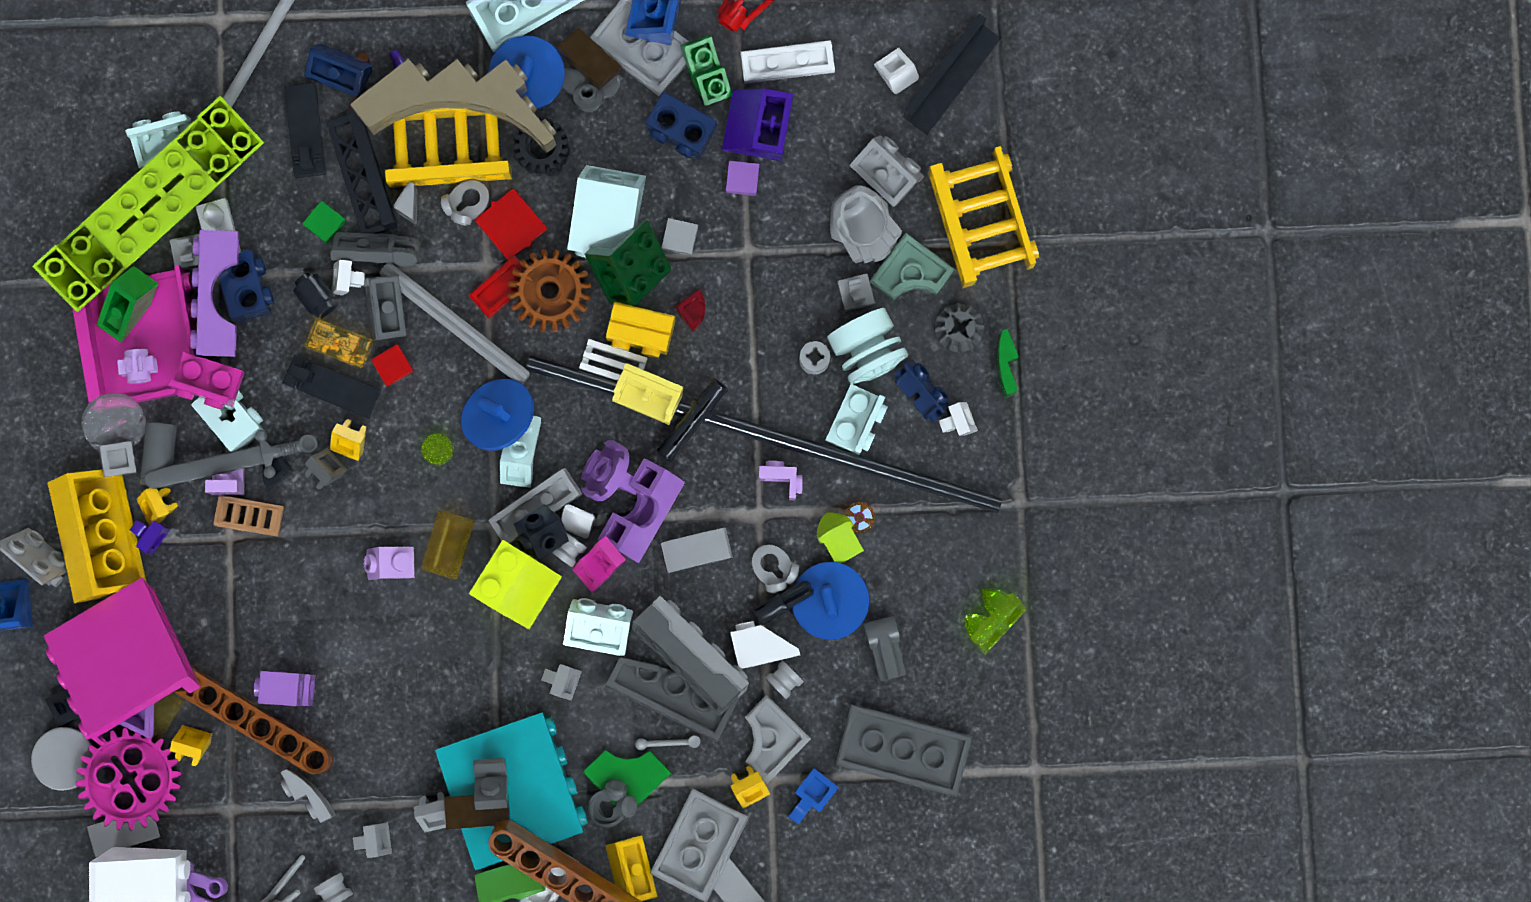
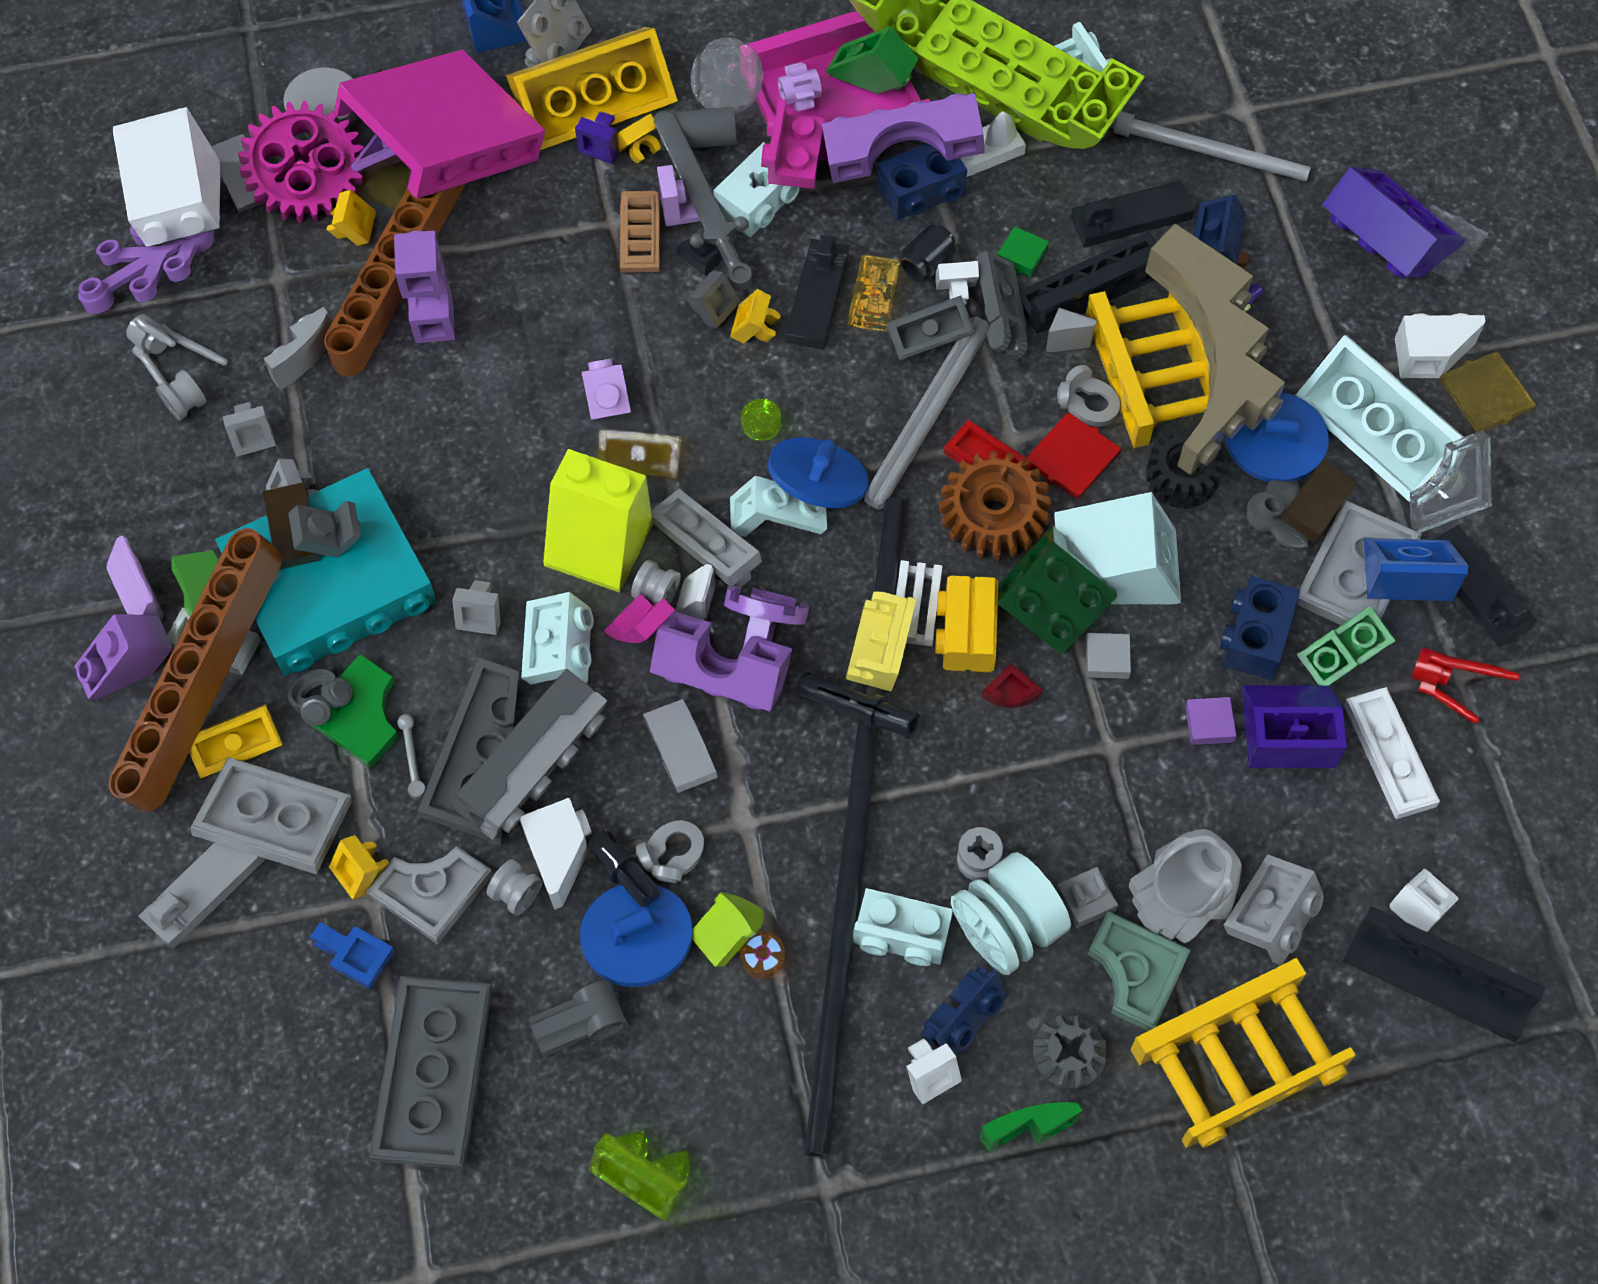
camera: 85 degrees right, 20 degrees down
(117, 459) = (684, 86): light grey tile -> none
(392, 365) = (858, 353): red tile -> none
(540, 532) = (667, 536): black brick -> none
(776, 472) = (807, 827): lavender bracket -> none

